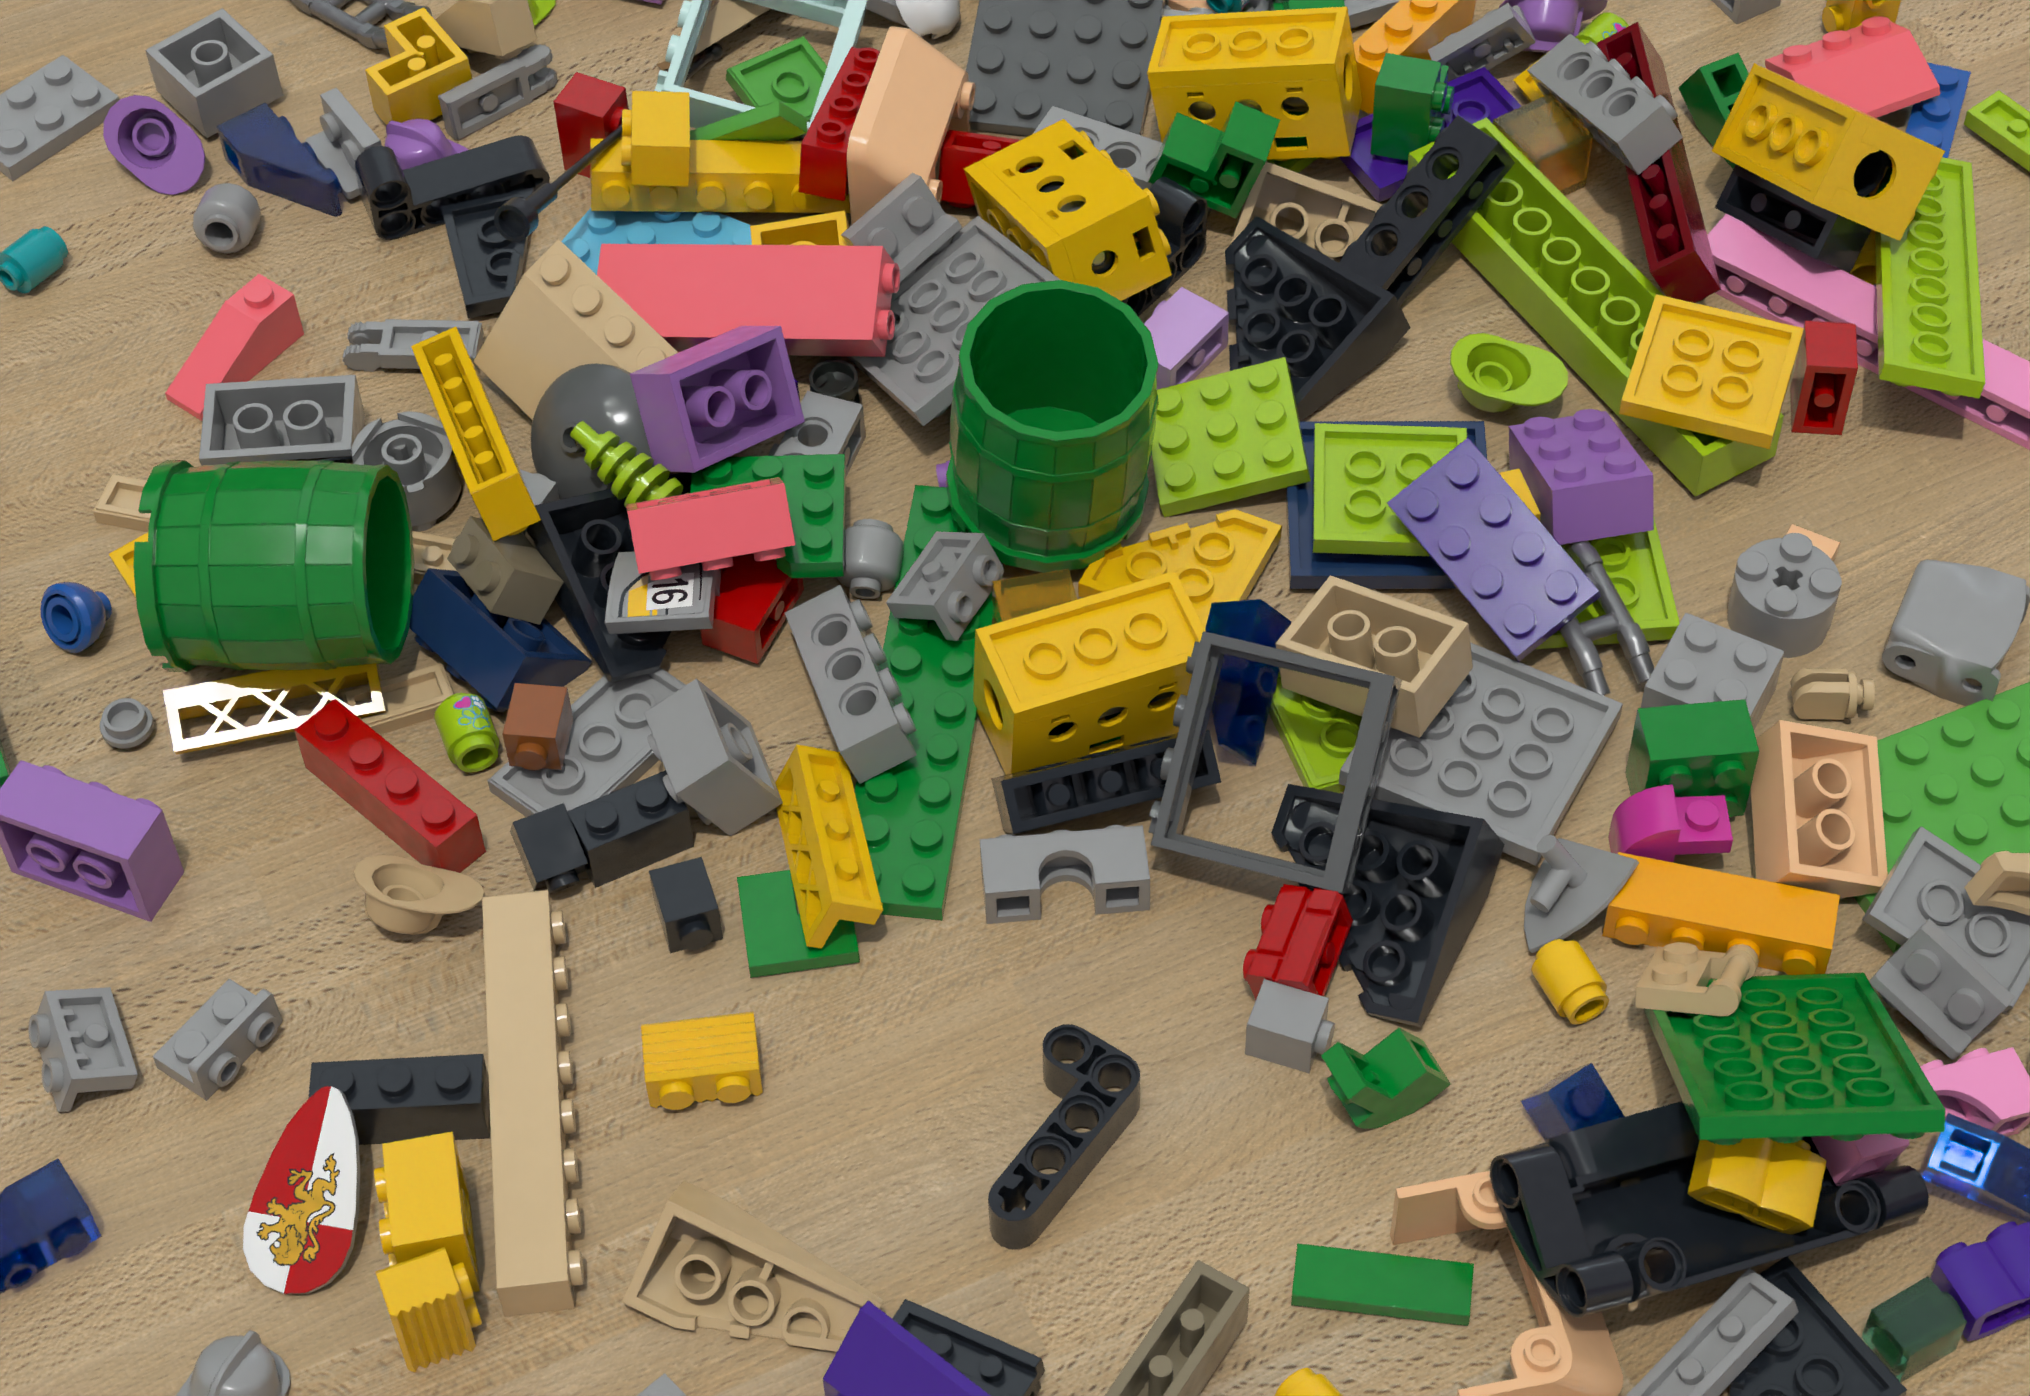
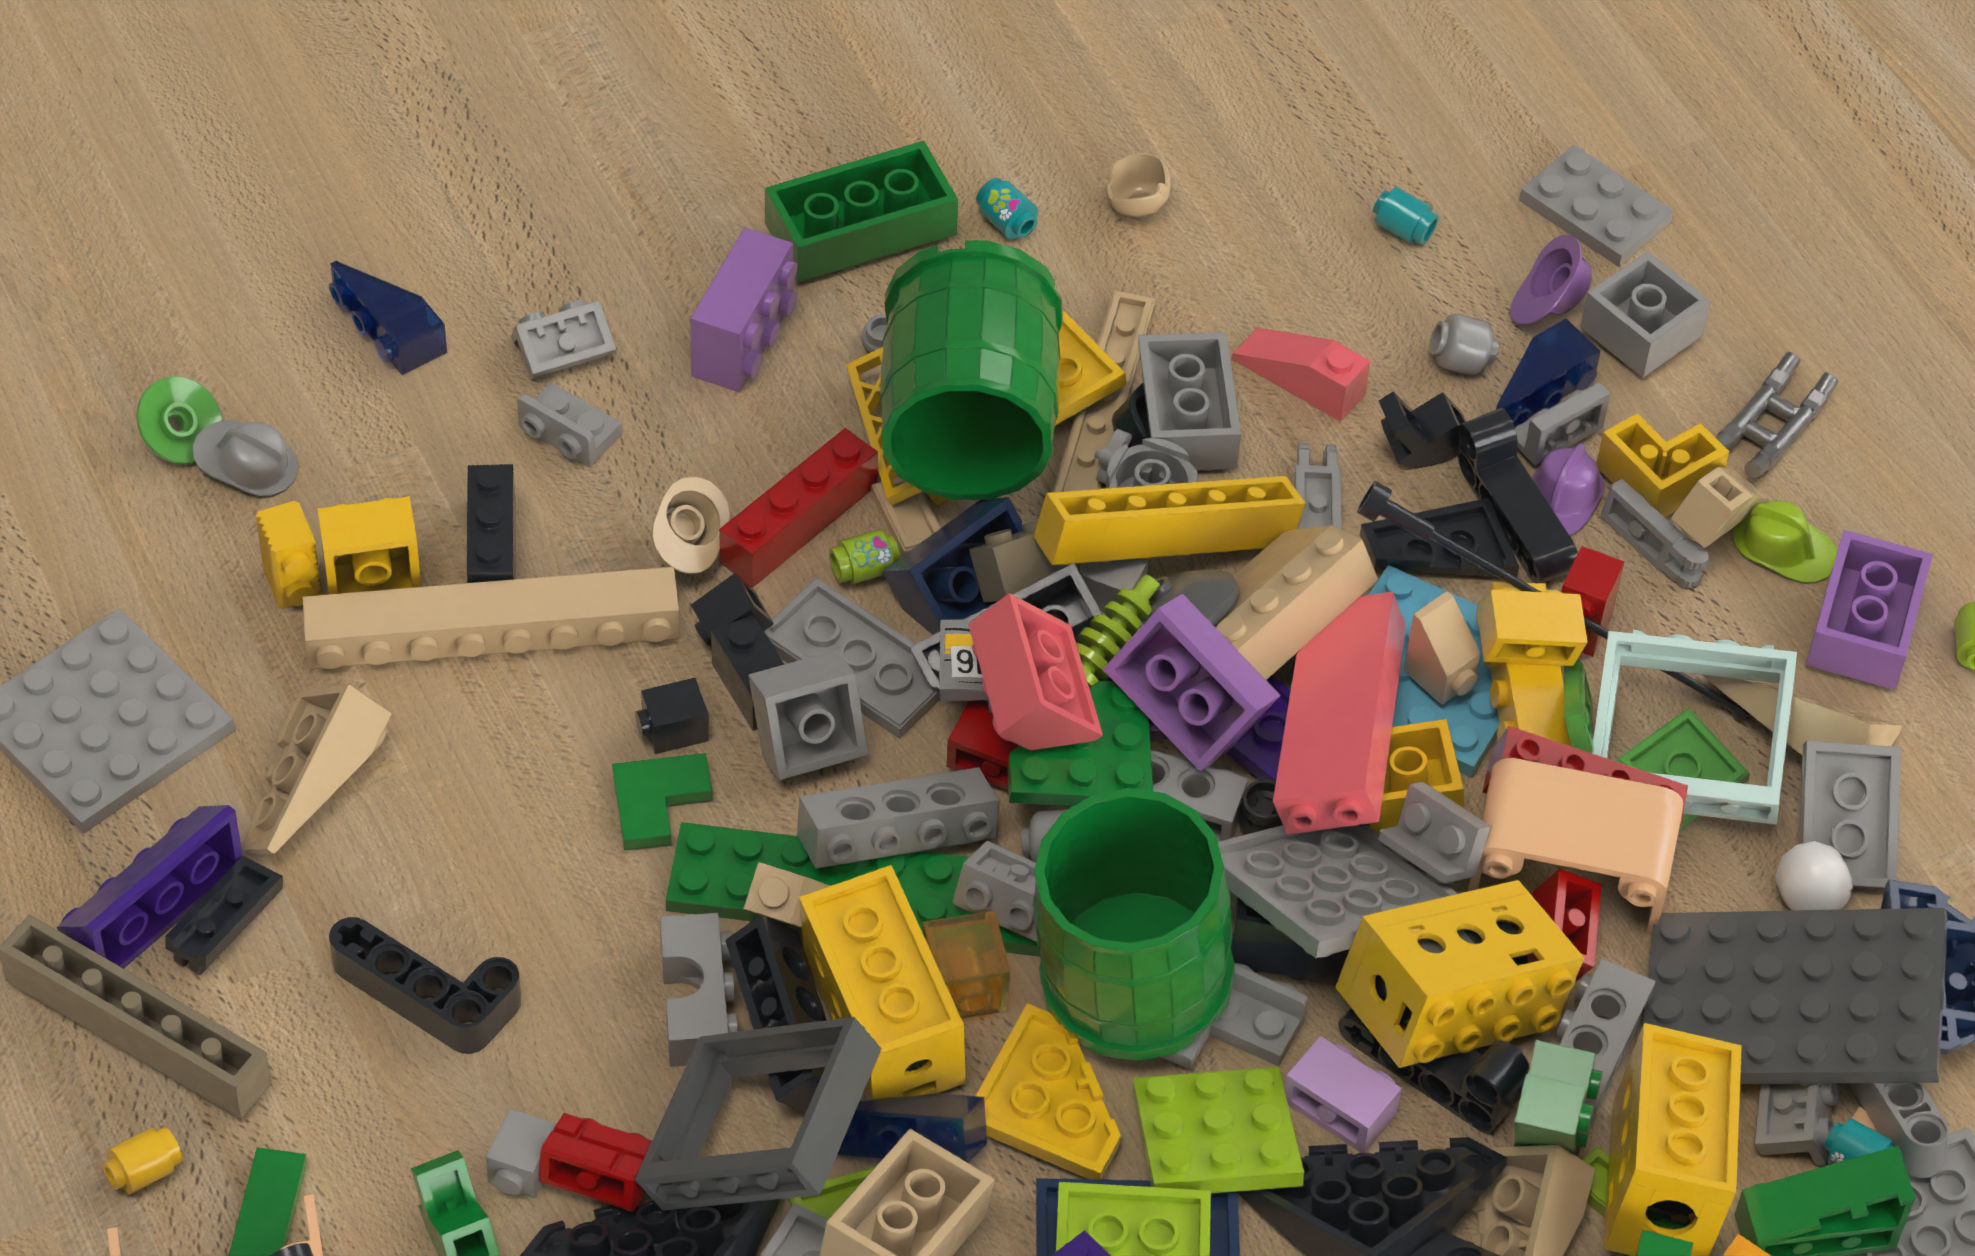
camera: 85 degrees right, 0 degrees up
(307, 1199) = (405, 473): shield -> none
(345, 248) = (1423, 434): none -> black brick
(538, 726) = (852, 596): dark orange brick -> none
(662, 216) = (1442, 650): none -> tan slope
(701, 1060) = (518, 731): yellow brick -> none
(825, 843) = (719, 806): yellow fence -> none
(960, 776) = (778, 893): none -> tan slope

